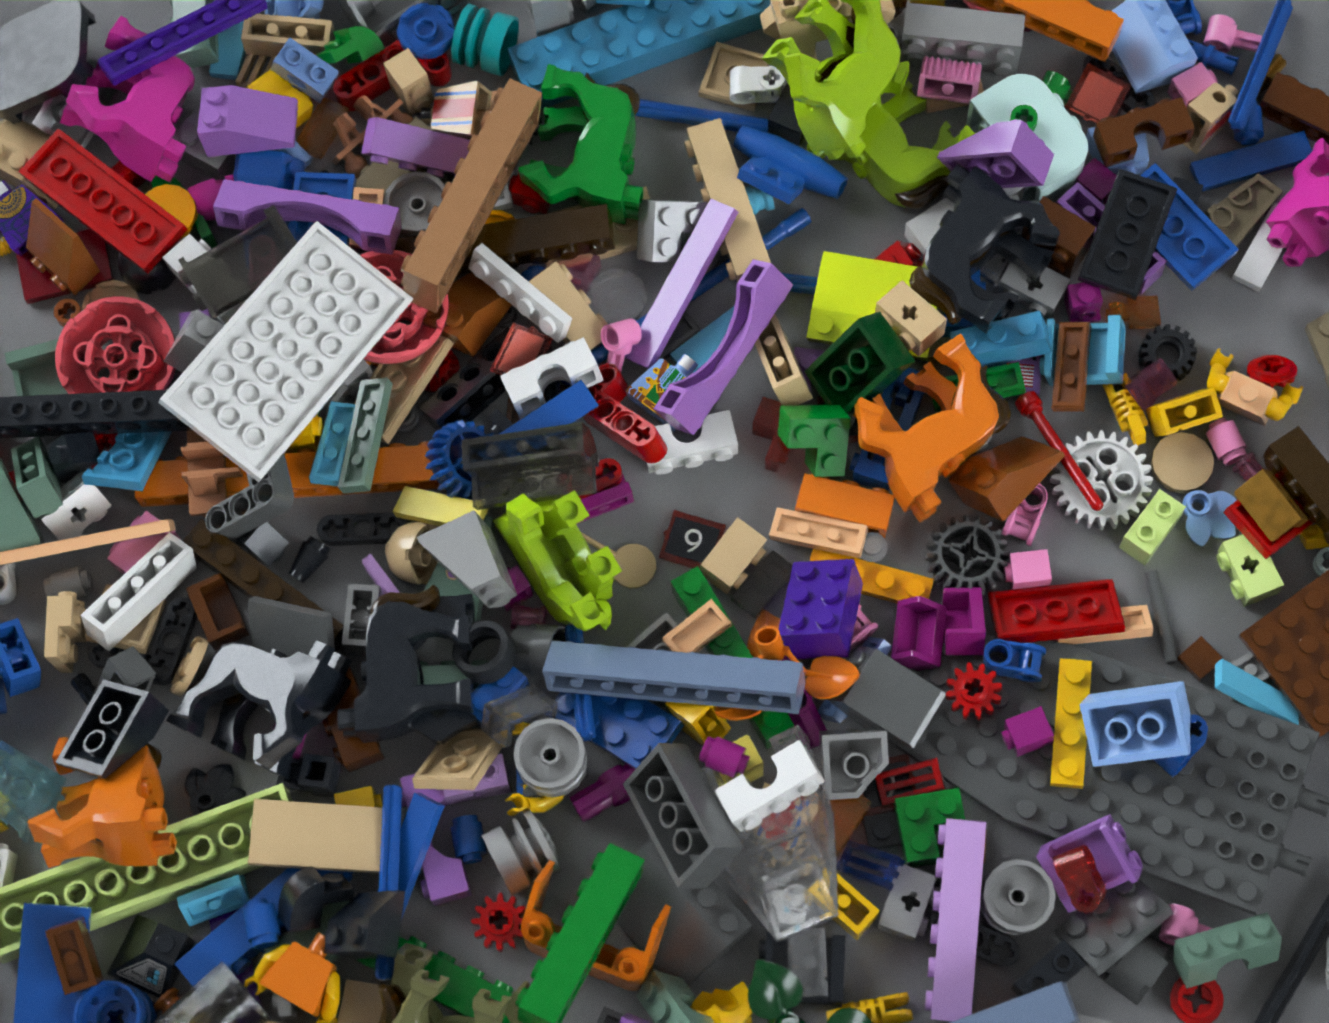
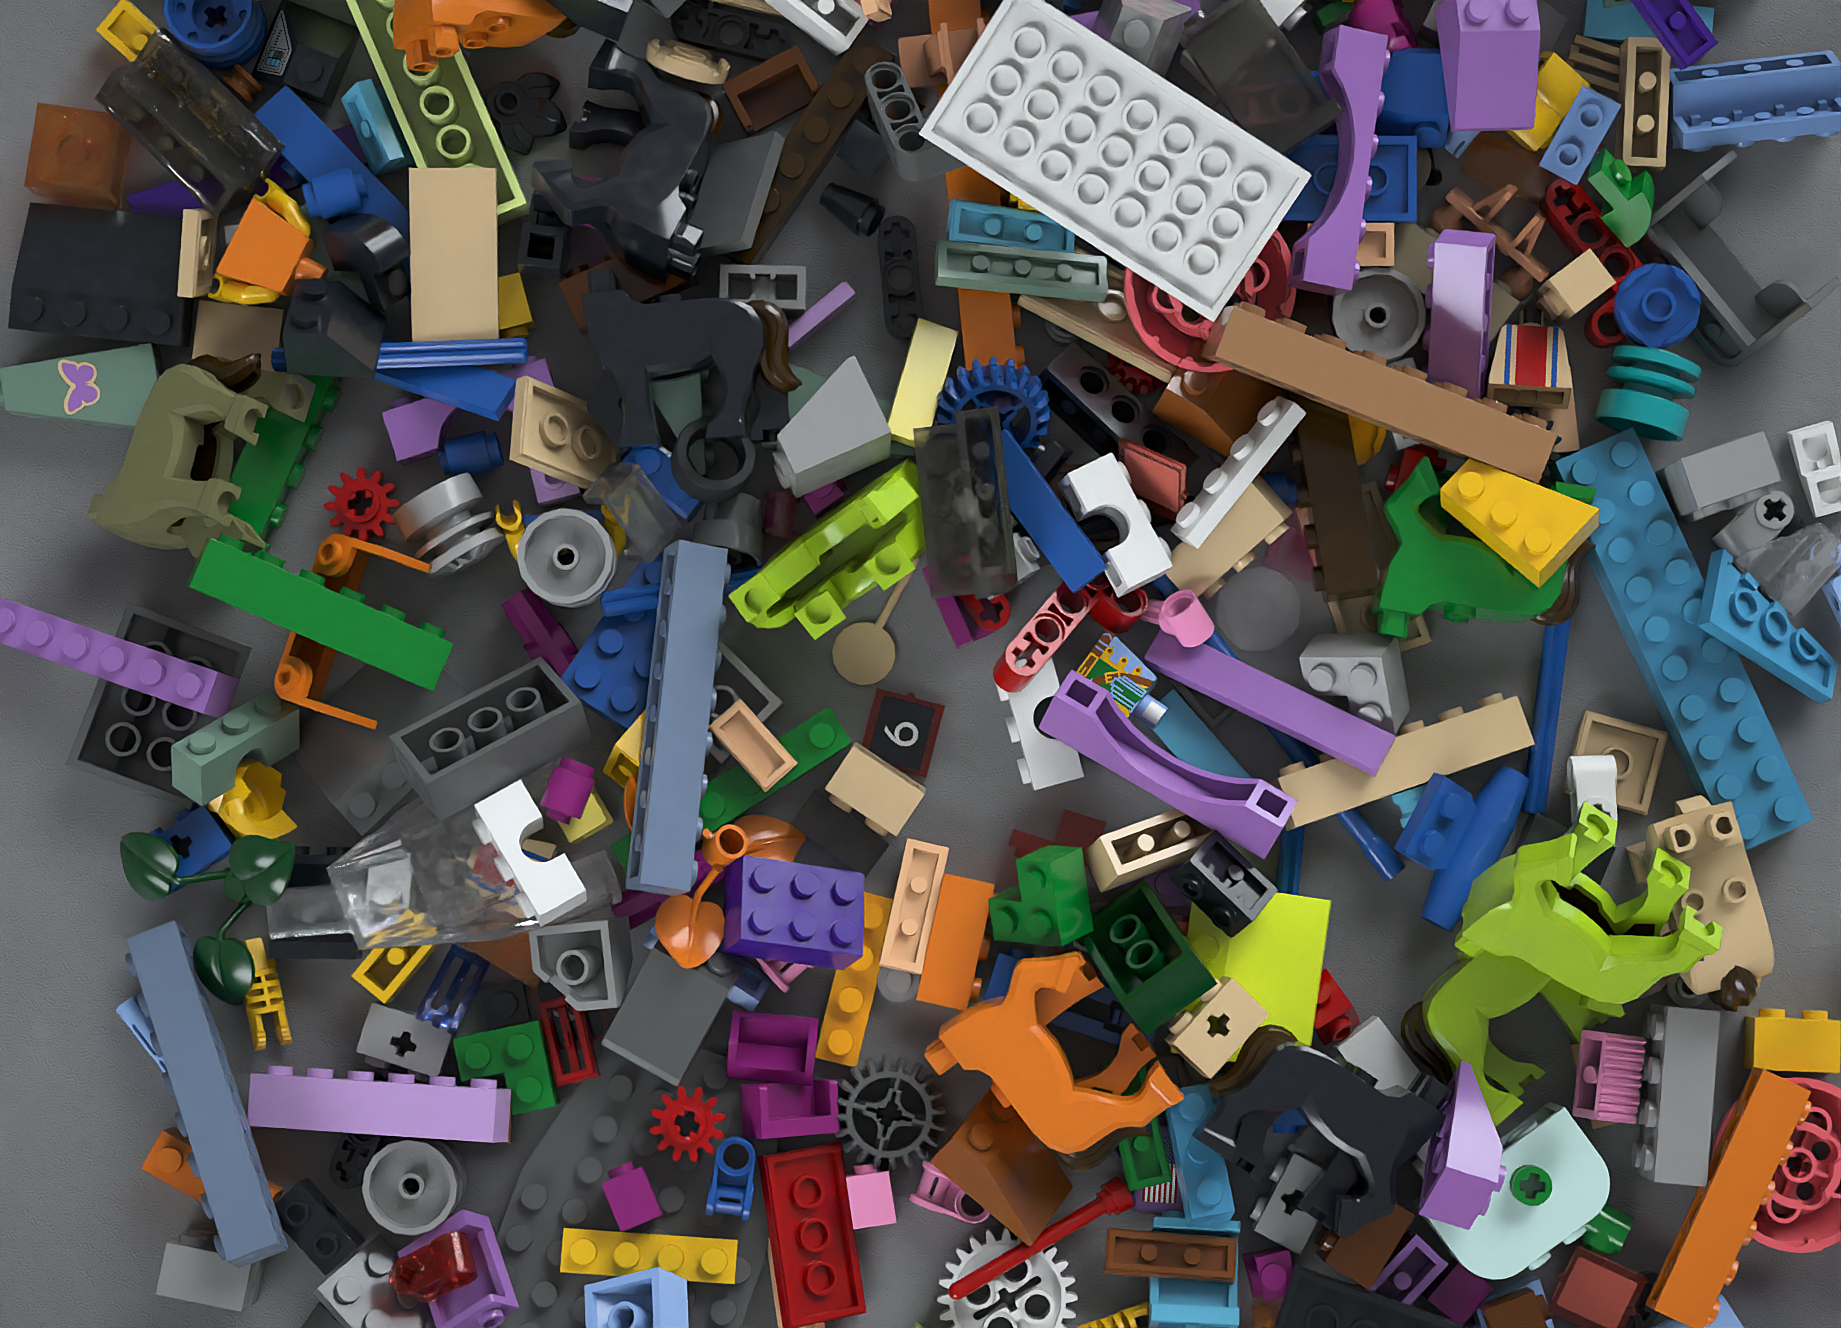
camera: 80 degrees right, 15 degrees up
(407, 557) = (872, 343): tan cylinder -> none
(564, 109) = (1518, 518): none -> yellow wedge
(811, 312) = (1223, 884): none -> black bracket

